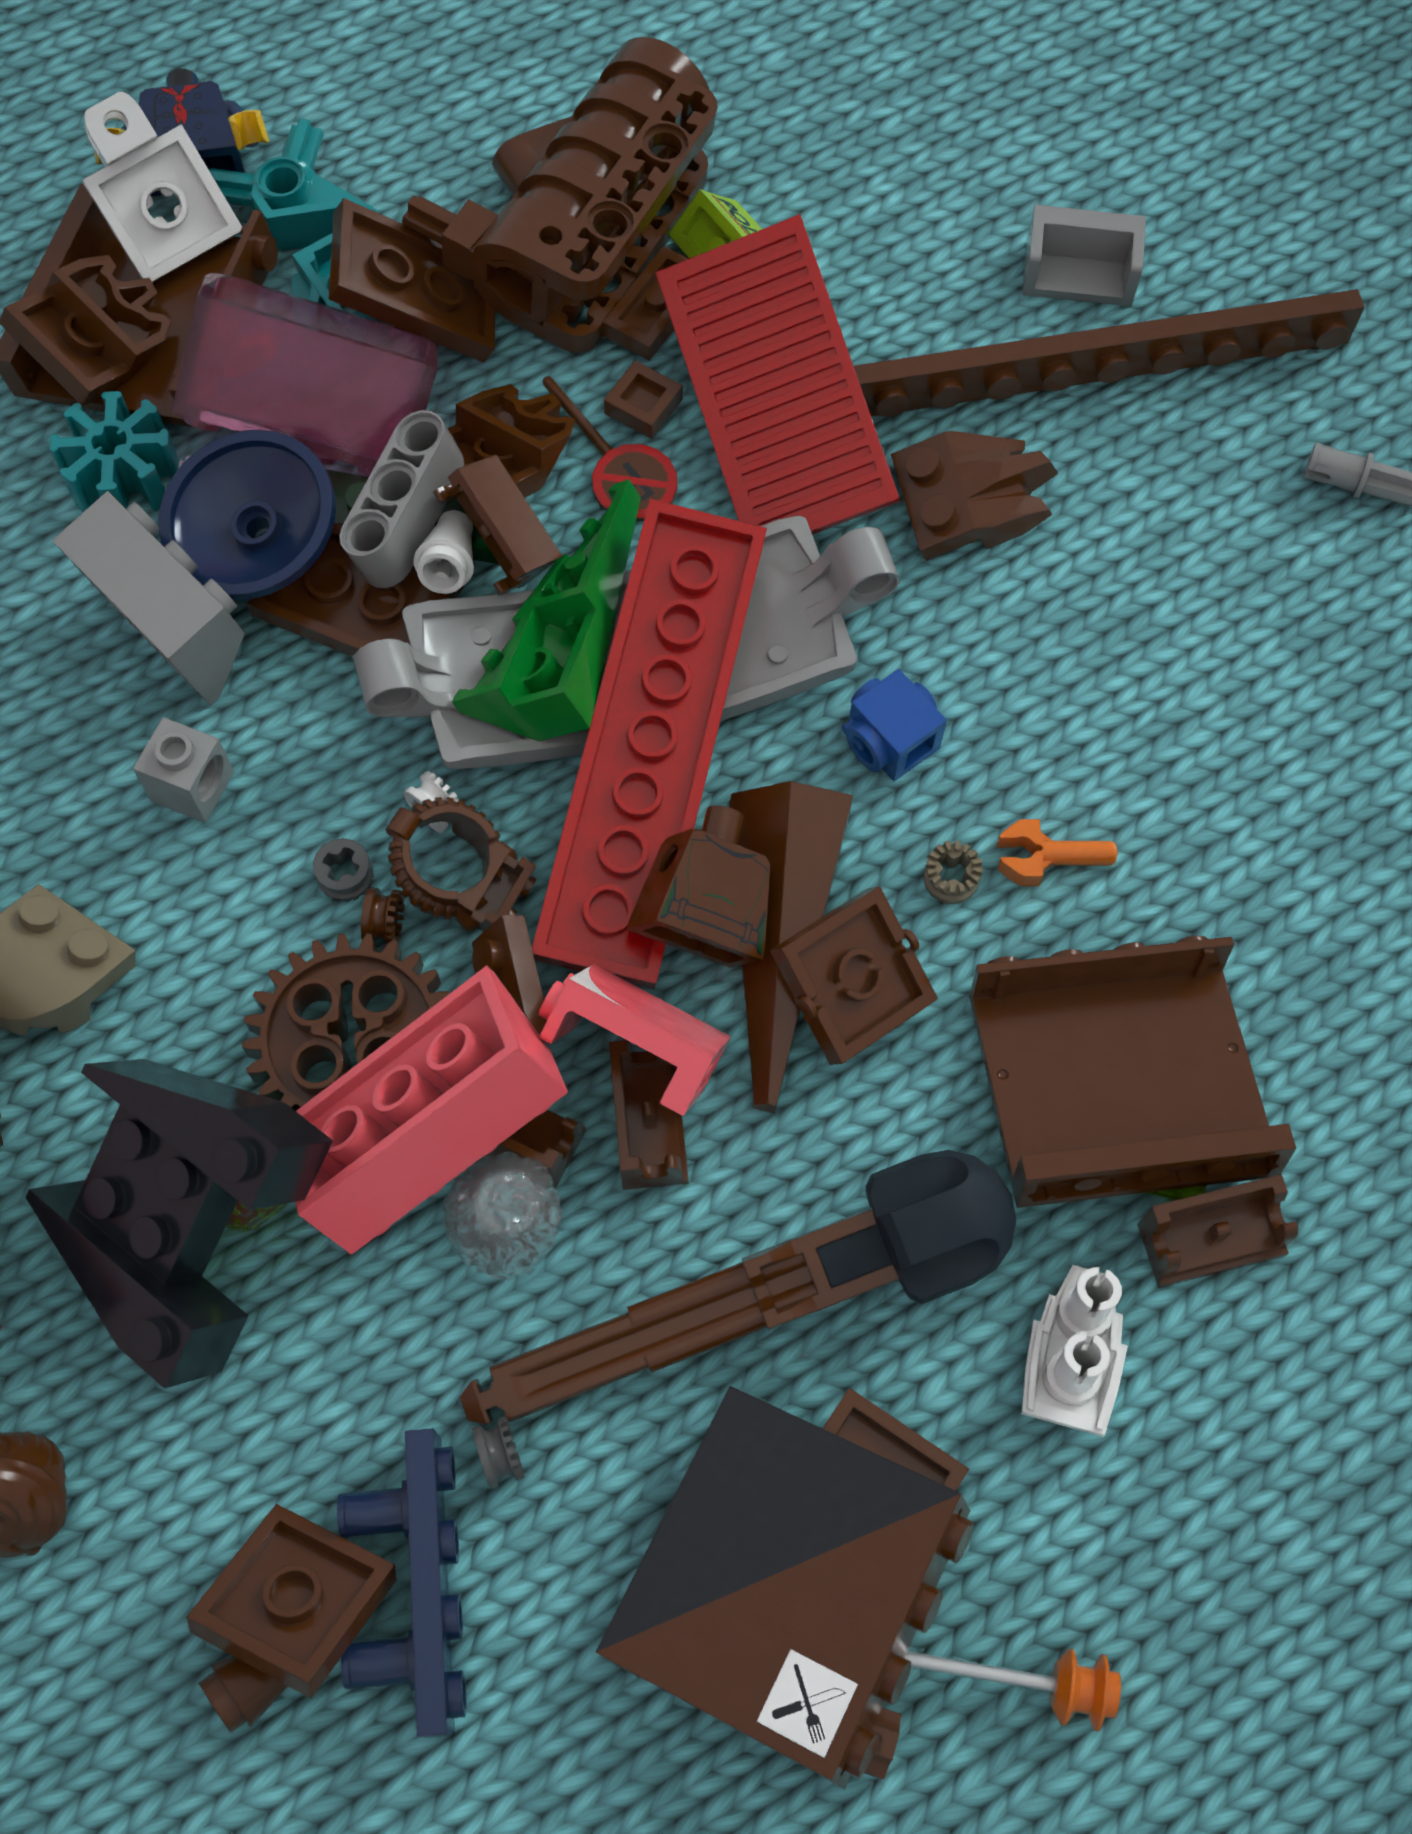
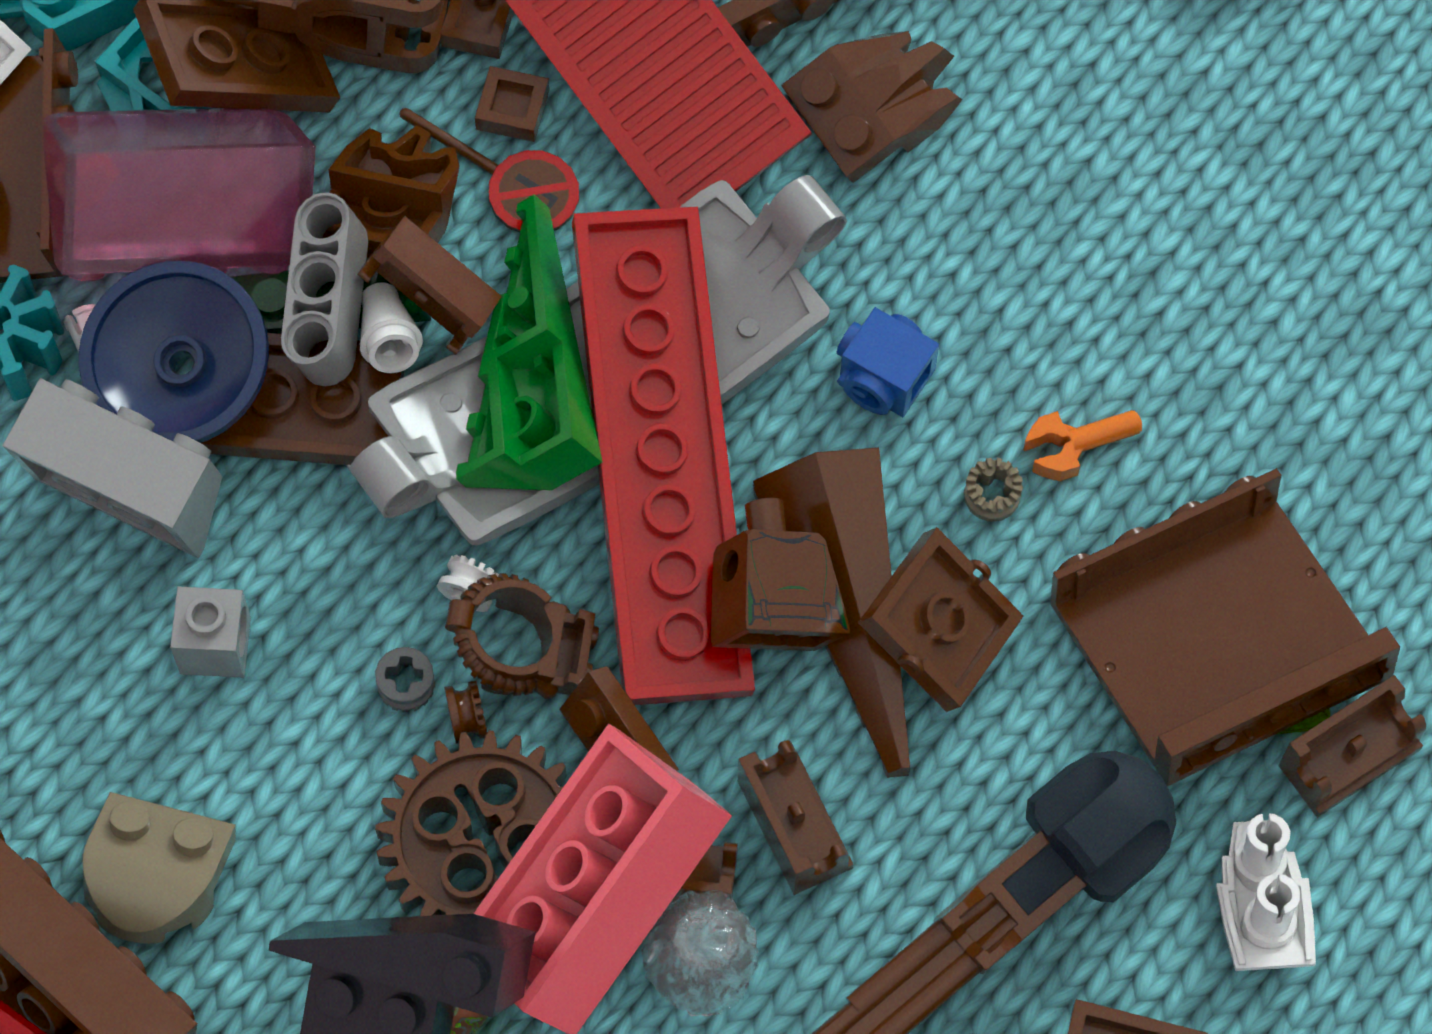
camera: 20 degrees left, 0 degrees up
(642, 1021) = (767, 727): coral panel -> none

